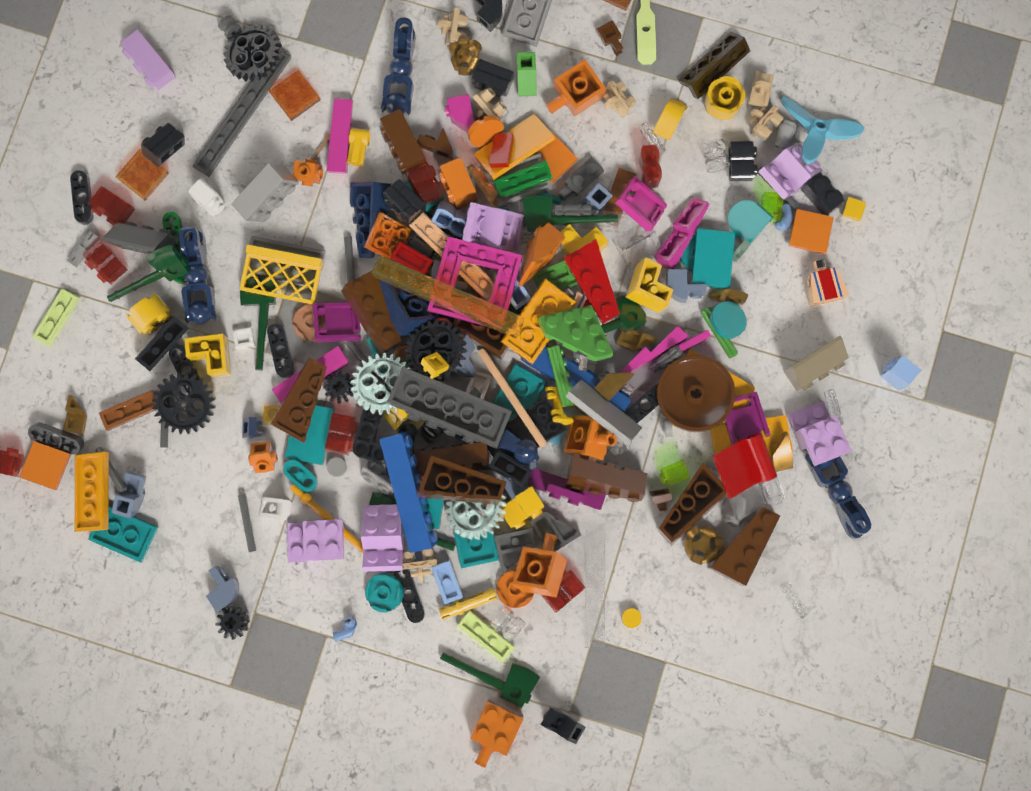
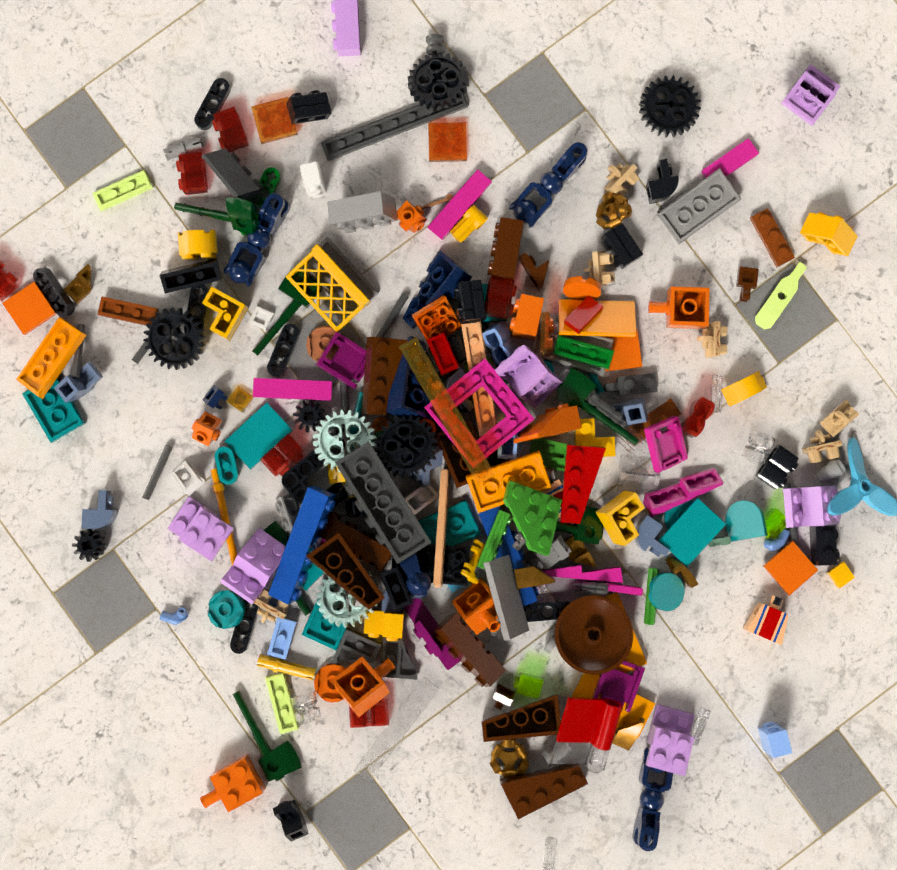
camera: 30 degrees right, 5 degrees up
(298, 406) = (261, 410): reddish brown wing -> none
(336, 467) = (260, 479): light grey tile -> none
(434, 364) = (395, 459): yellow tile -> none
(460, 111) = (573, 256): dark pink slope -> none
(526, 74) = (652, 264): bright green slope -> none
(619, 347) = (558, 552): none -> light grey brick
(631, 618) = (408, 774): yellow tile -> none
(717, 65) = (819, 371): dark brown fence -> none
(724, 108) = (811, 410): yellow brick -> none
(818, 364) = (712, 682): dark tan slope -> none

